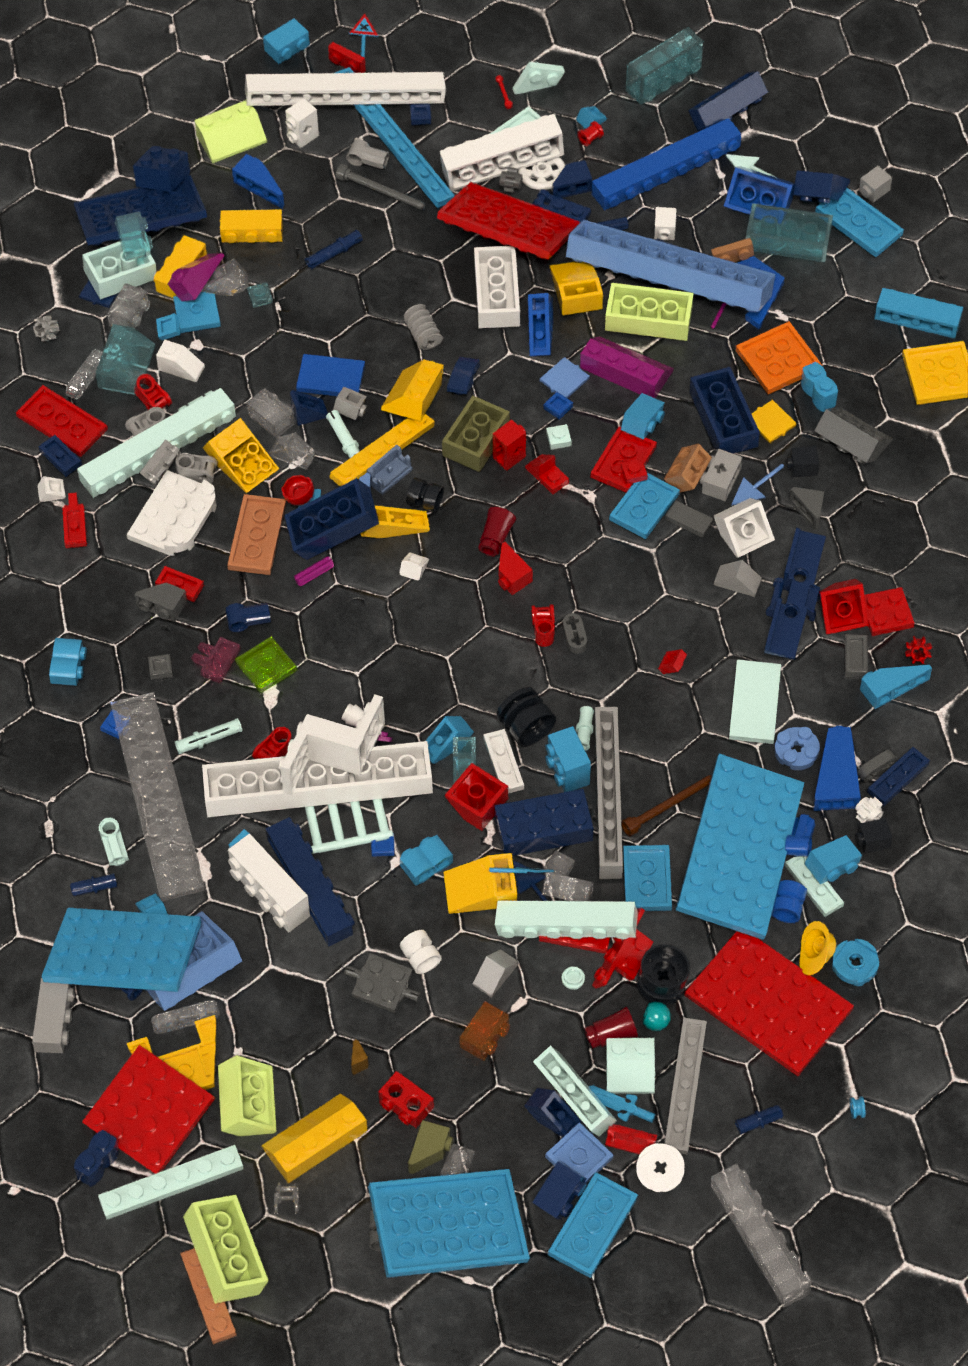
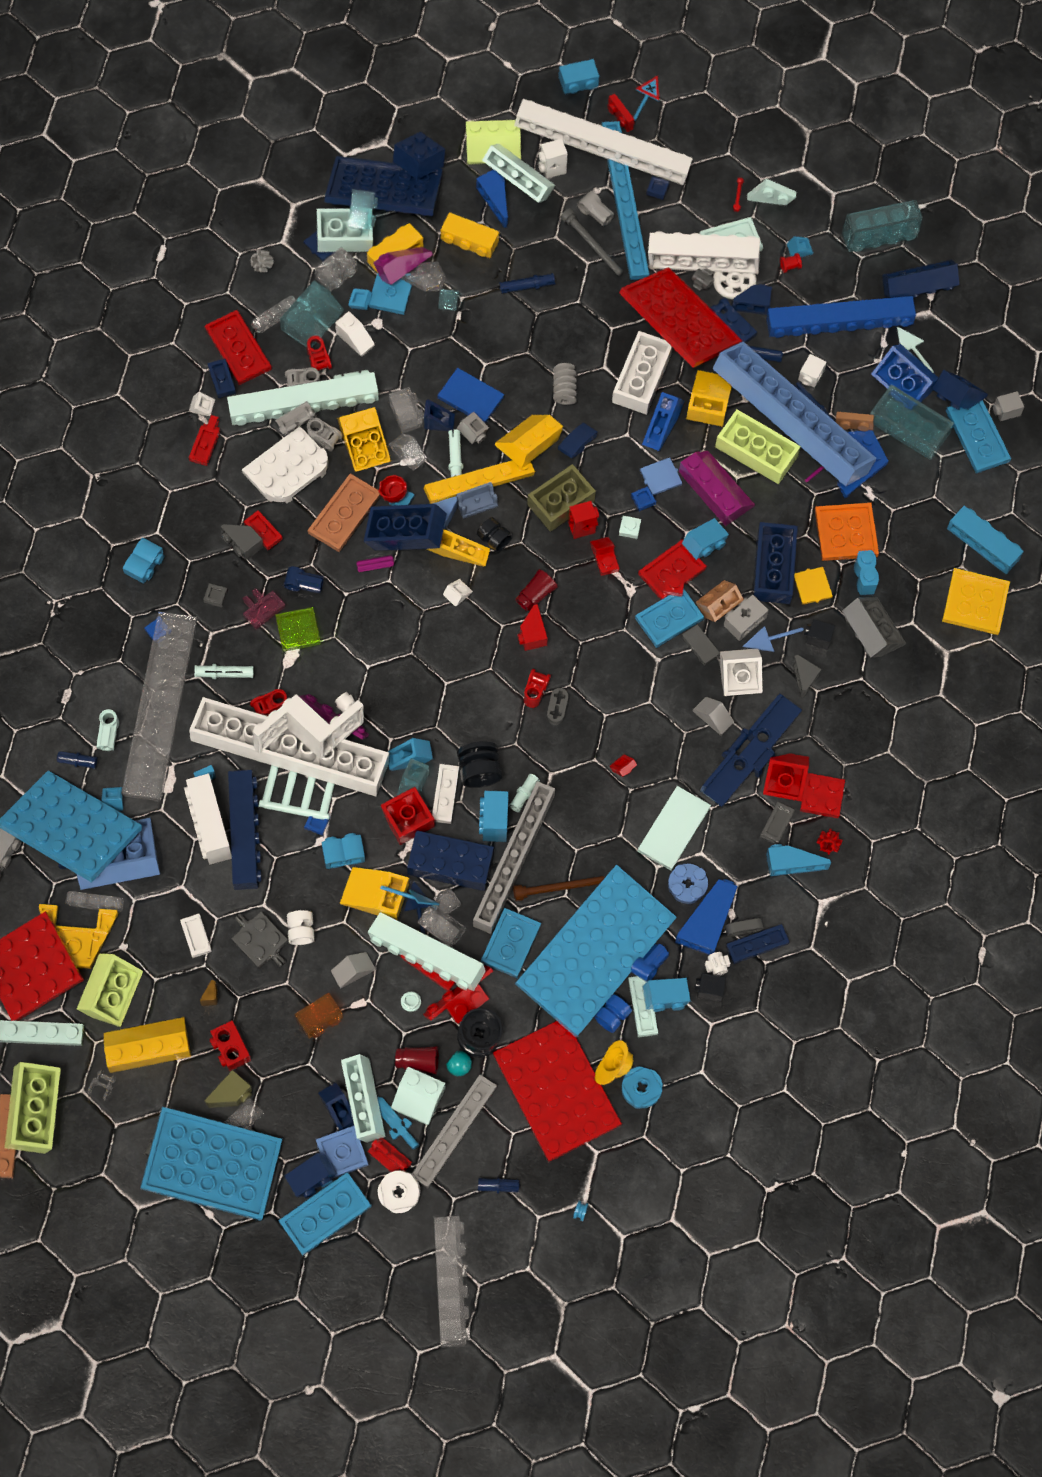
camera: 20 degrees right, 10 degrees up
(272, 148) = (518, 172): none -> light aqua brick
(311, 1007) = (195, 935): none -> white tile

